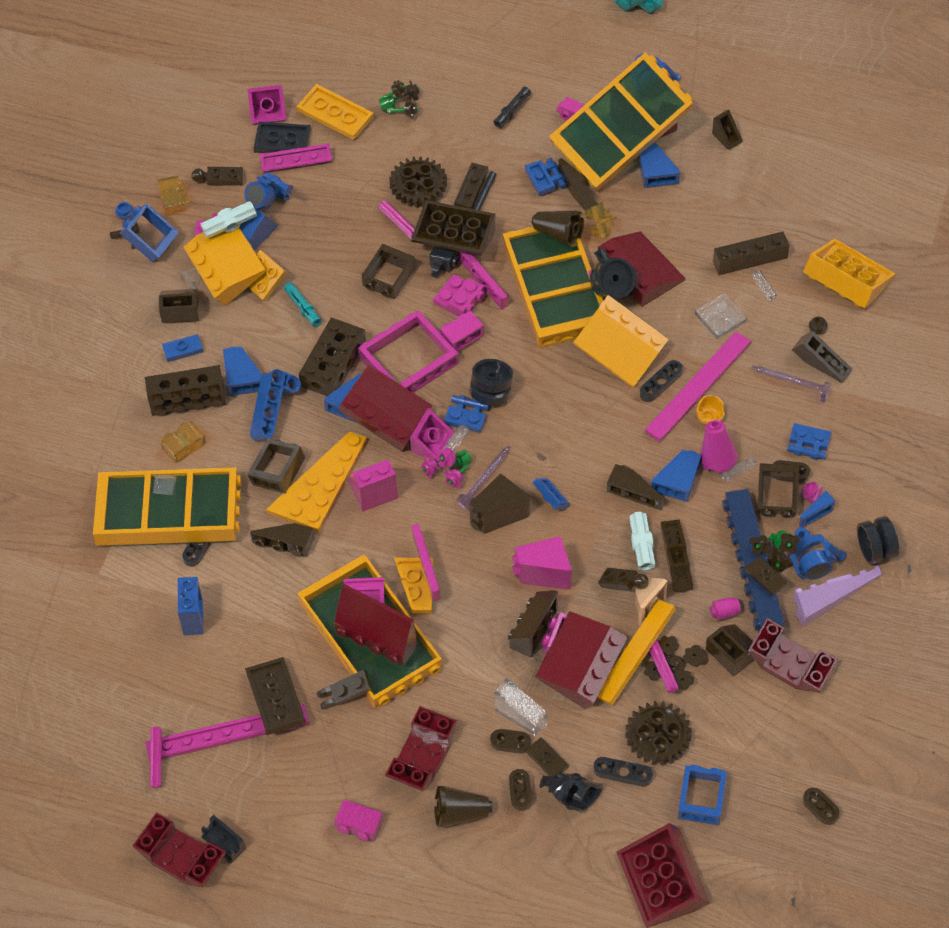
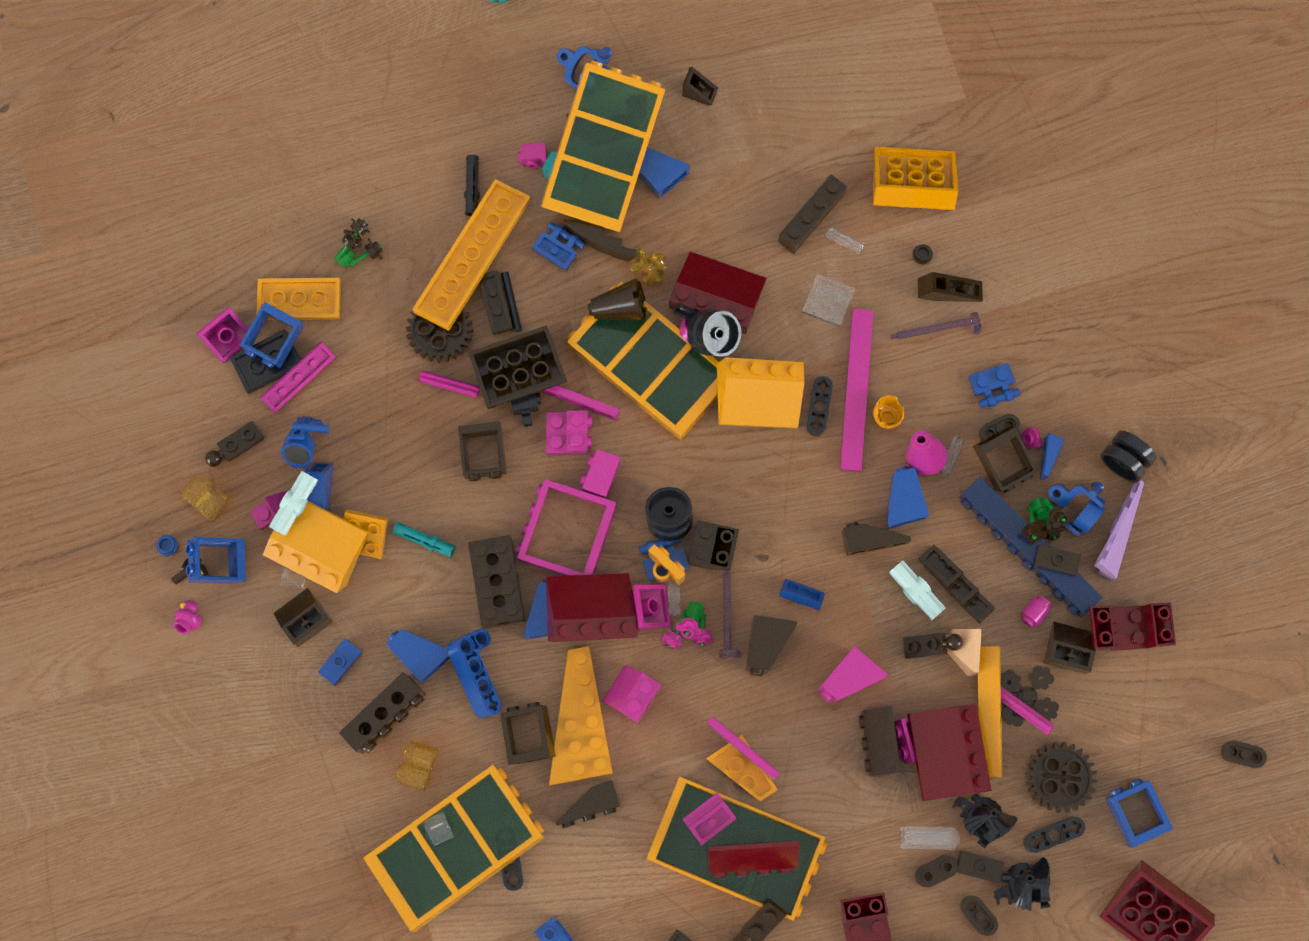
camera: 35 degrees left, 20 degrees up
(101, 260) = (186, 619): none -> dark pink animal
(291, 108) = (255, 328): none -> blue window
(462, 408) = (661, 558): none -> light orange plate
(477, 145) = (471, 254): none -> light orange plate
(506, 421) = (713, 546): none -> dark brown slope
(574, 725) = (984, 818): none -> black helmet

